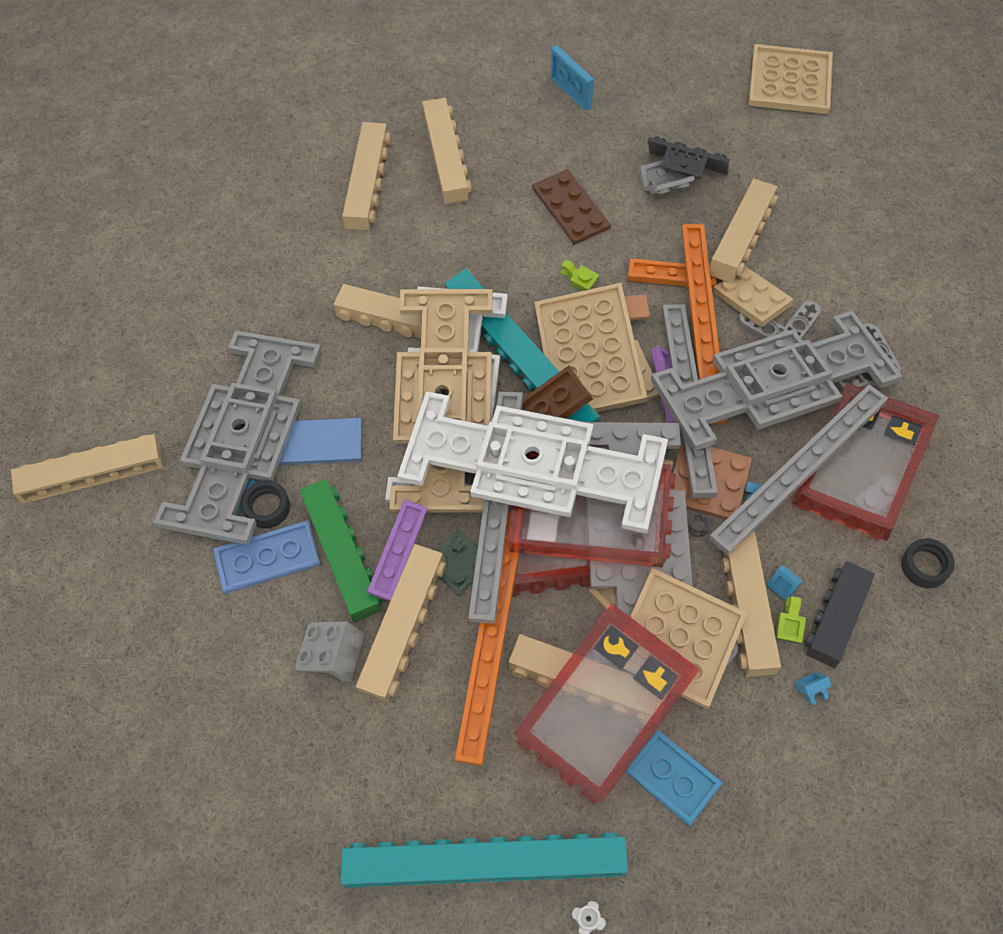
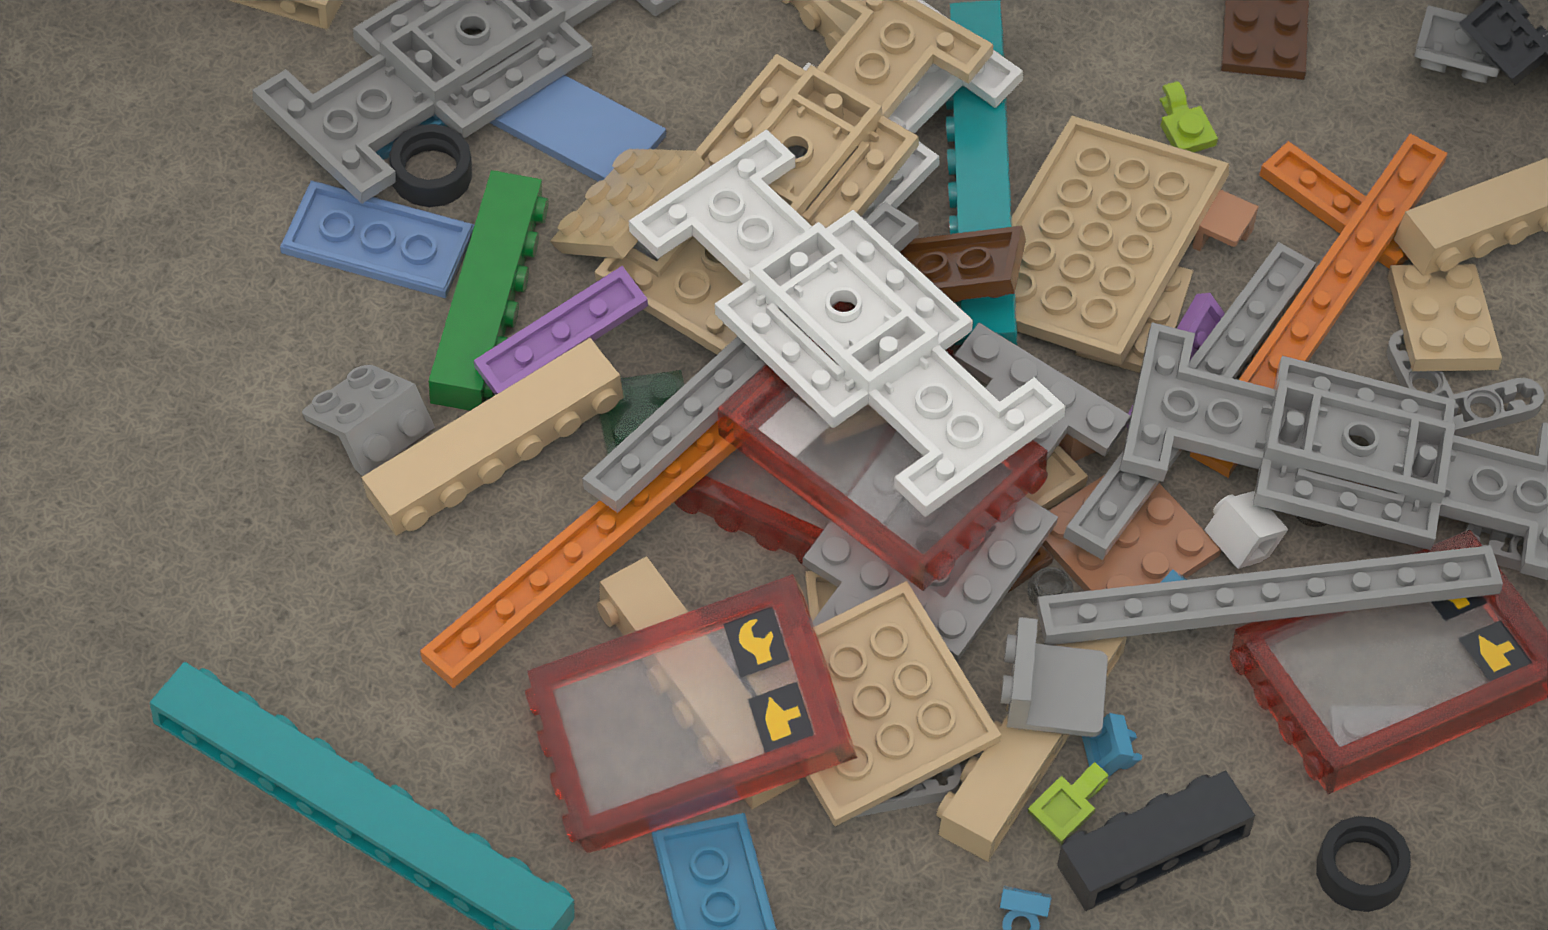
camera: 30 degrees right, 5 degrees down
(377, 465) = (633, 185): none -> tan plate
(749, 572) = (1053, 685): none -> light grey bracket
(756, 443) = (1245, 530): none -> white brick

